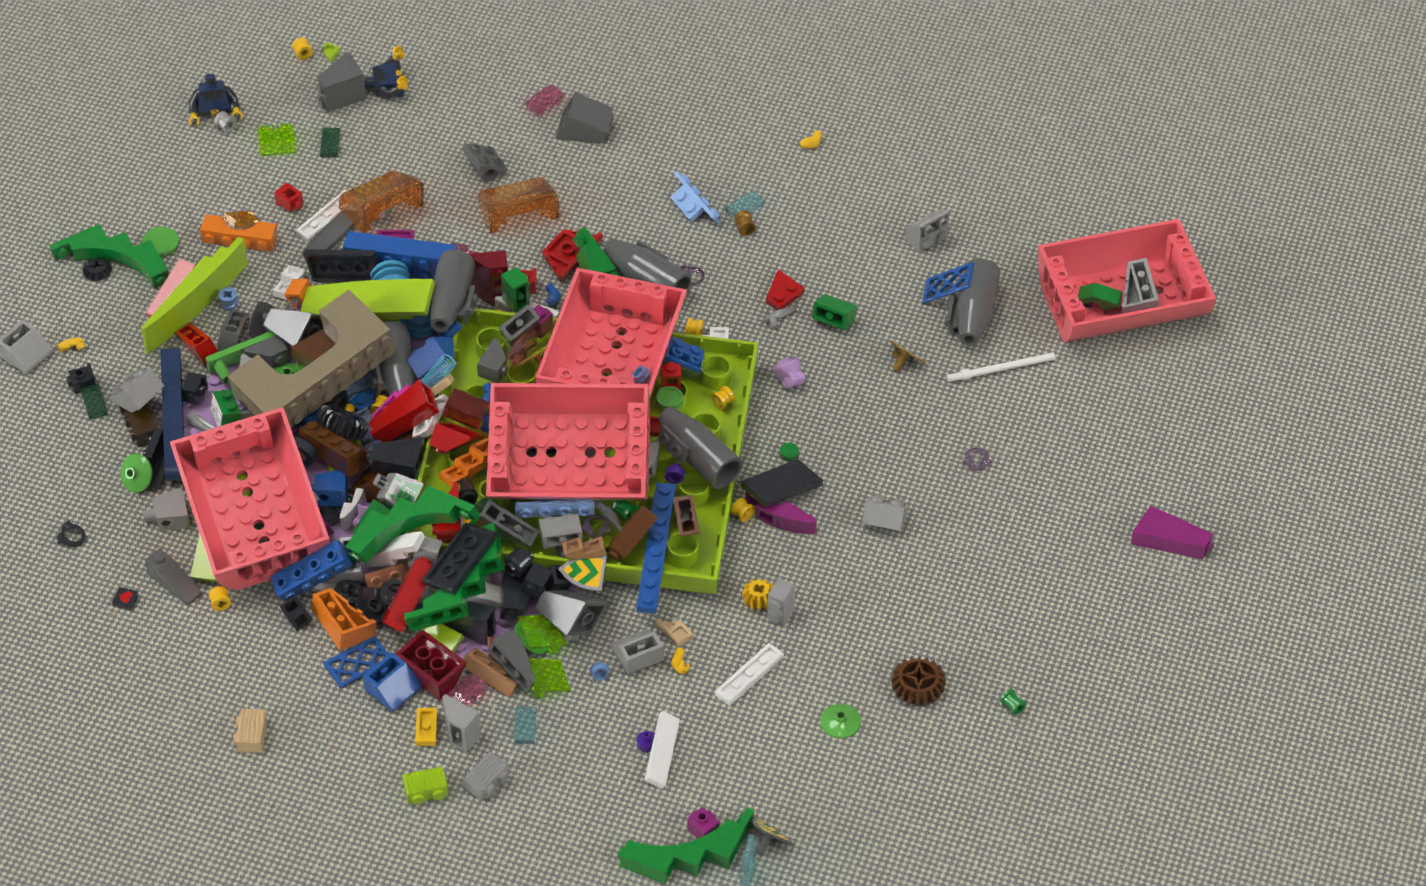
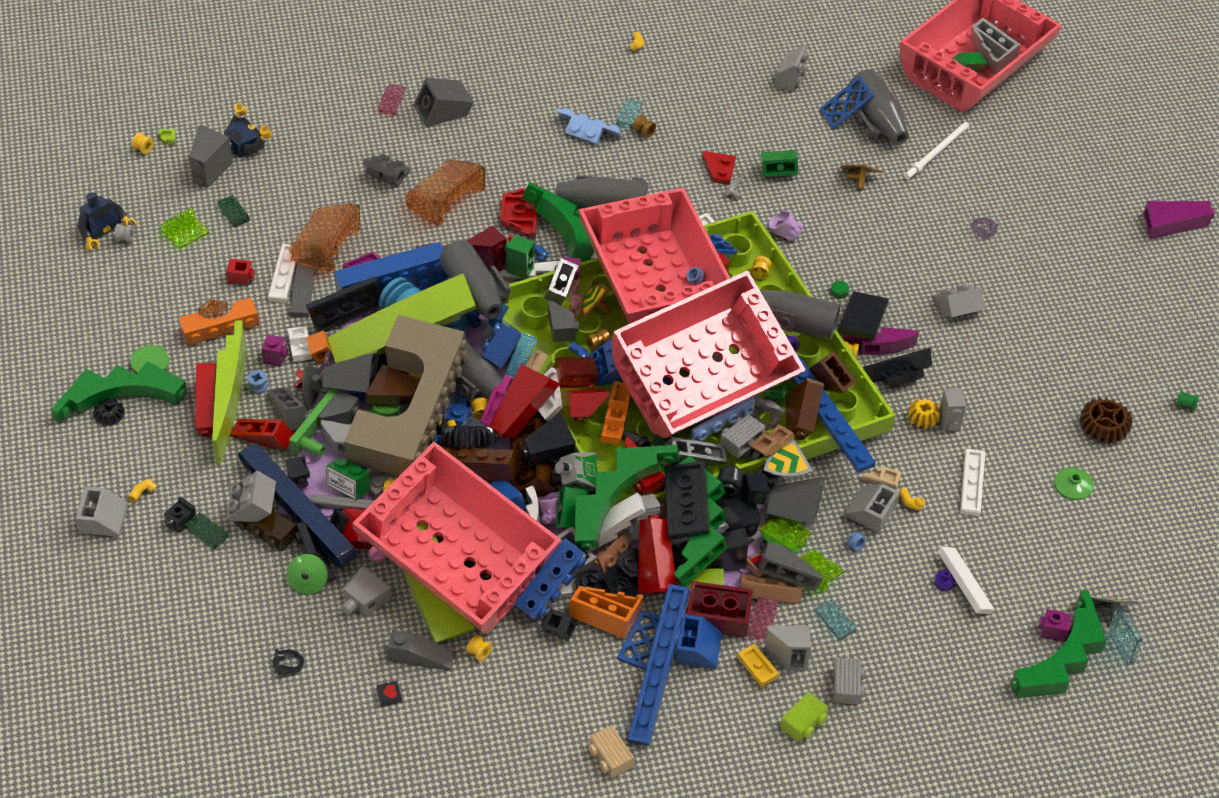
camera: 35 degrees left, 0 degrees up
(261, 278) = (274, 350): none -> magenta brick
(340, 681) = (659, 665): none -> blue plate
(772, 545) = (901, 368): none -> black bracket

